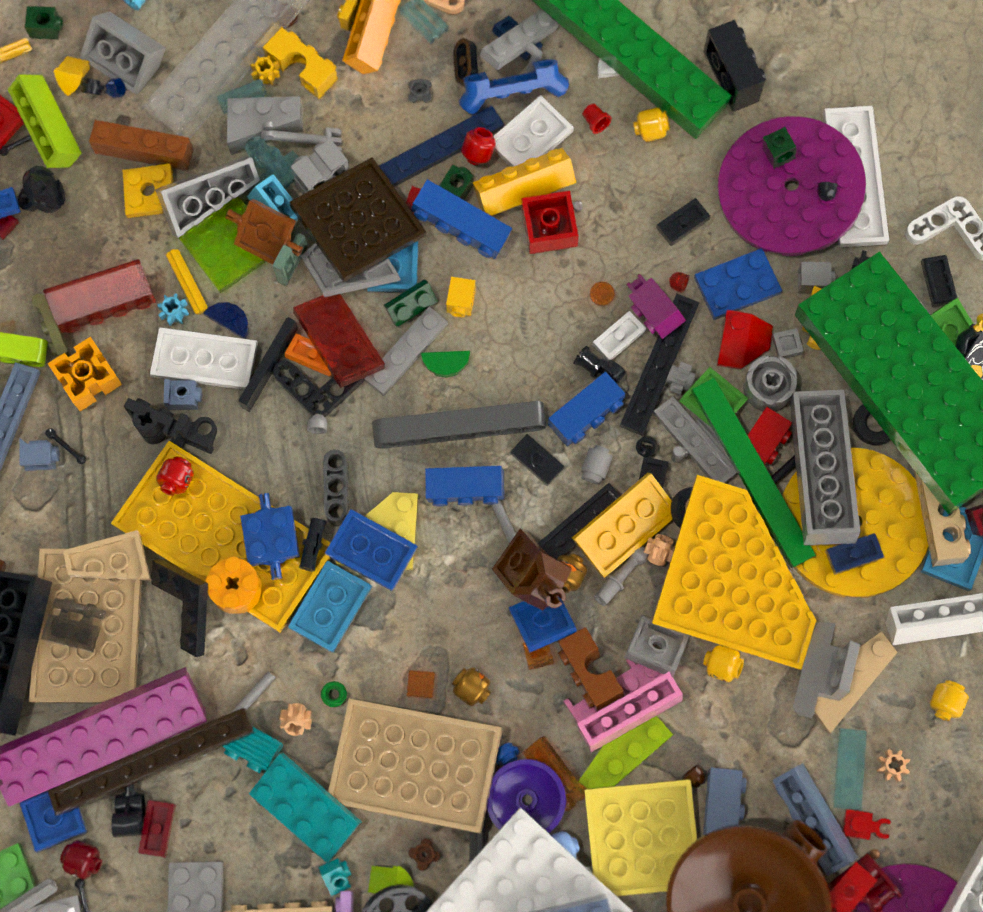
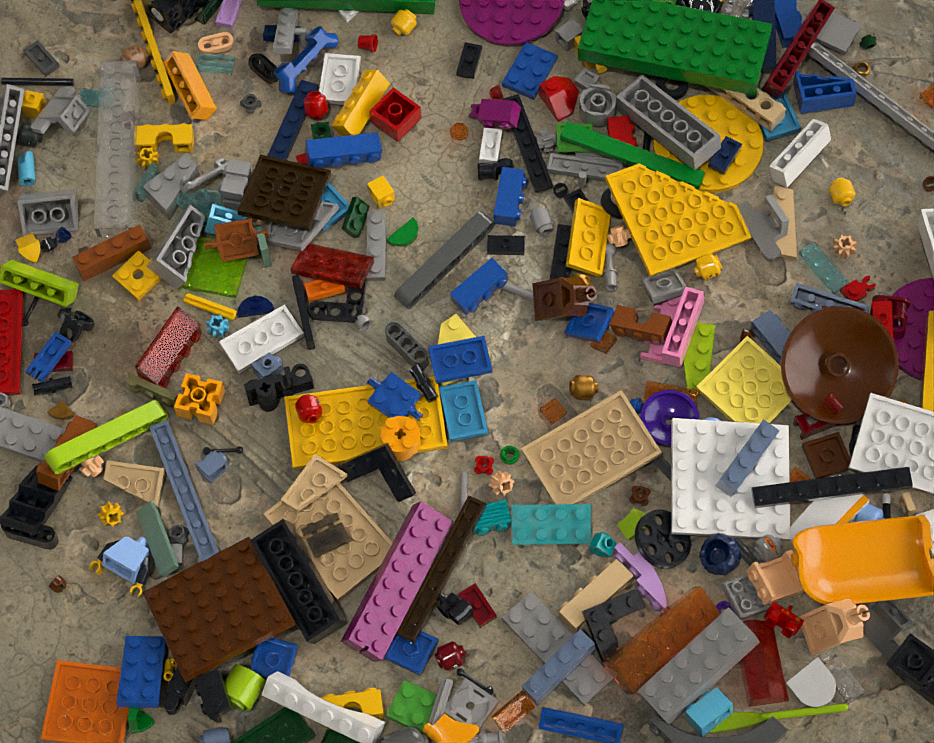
camera: 40 degrees left, 10 degrees down
(291, 683) = (488, 461): none -> red plate

